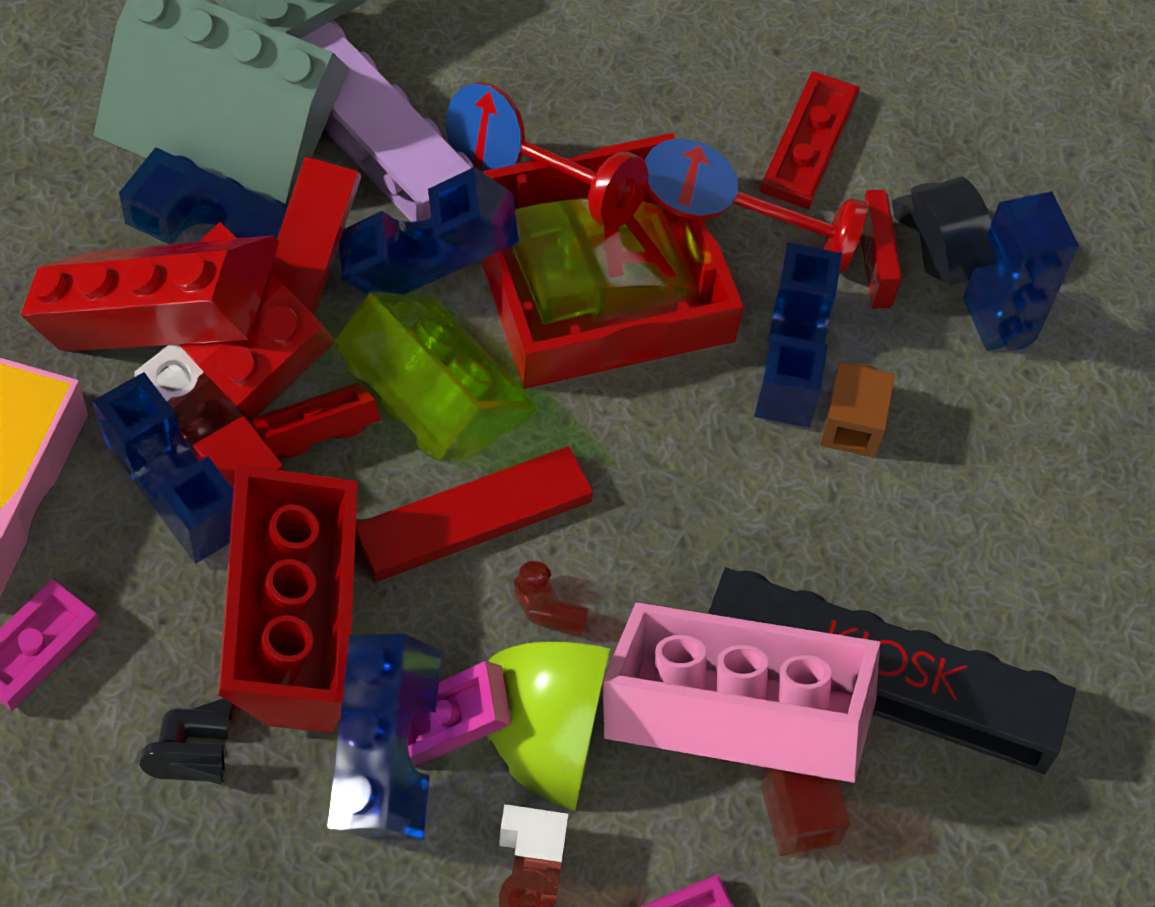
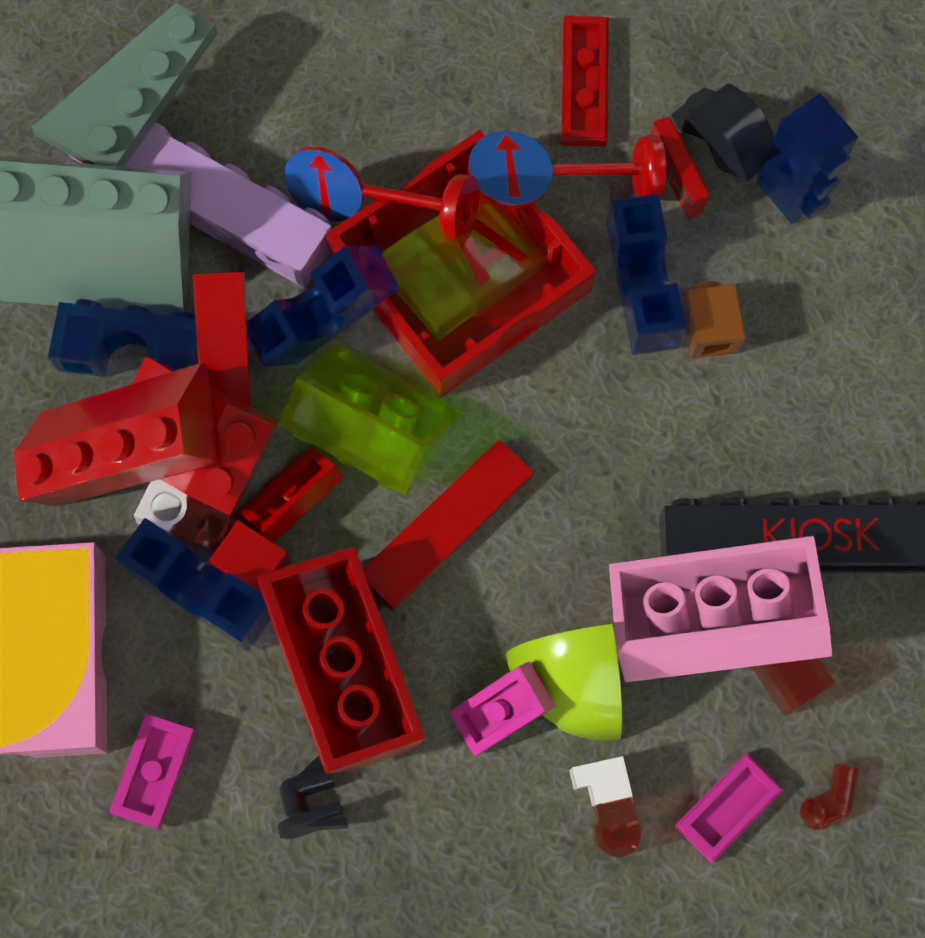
camera: 15 degrees left, 15 degrees up
(374, 780) = (449, 719): clear blue arch -> none
(541, 603) = (530, 582): clear red arm -> none

